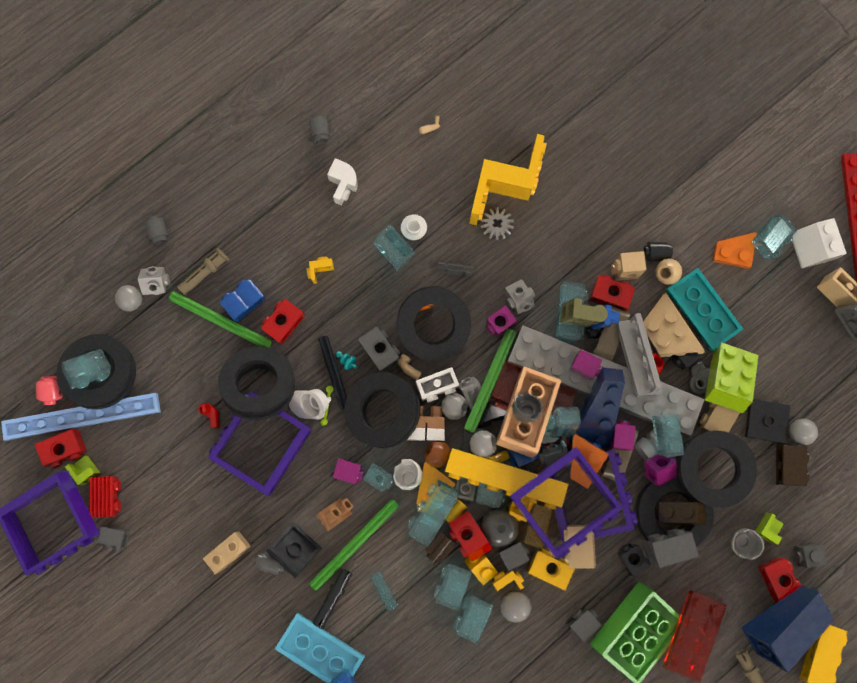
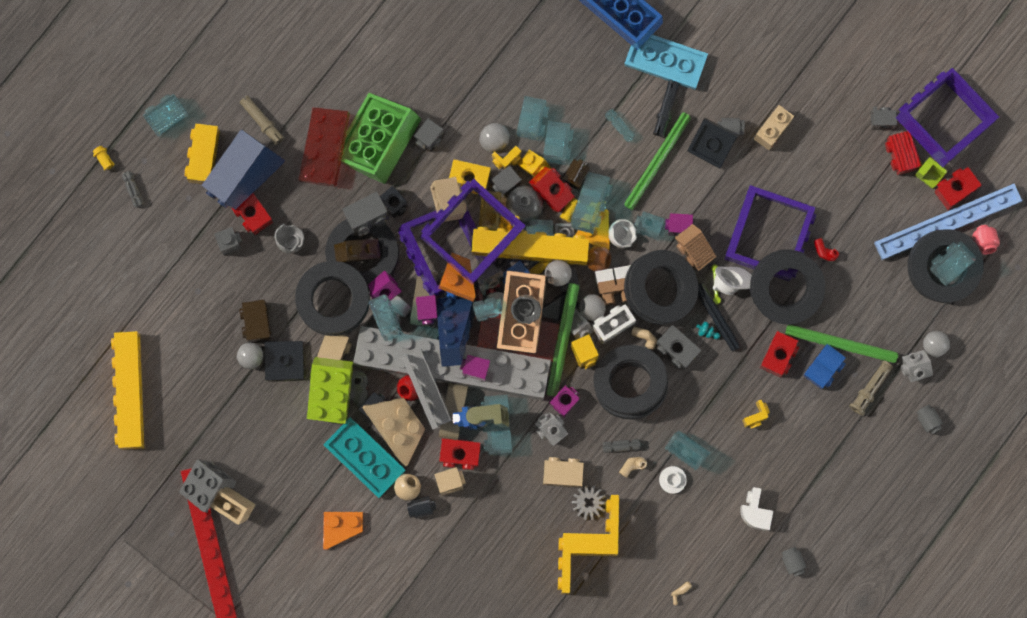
camera: 170 degrees right, 0 degrees up
(335, 513) = (682, 183): medium nougat hips -> none
(338, 442) = (695, 247): none -> medium nougat brick
(448, 250) = (633, 464): none -> tan arm
(472, 361) = (584, 352): none -> yellow brick
(516, 253) = (563, 473): none -> tan brick
(769, 528) = (268, 258): lime panel -> none
(774, 236) = (306, 546): clear light blue brick -> none
(818, 243) = (261, 550): white slope -> none

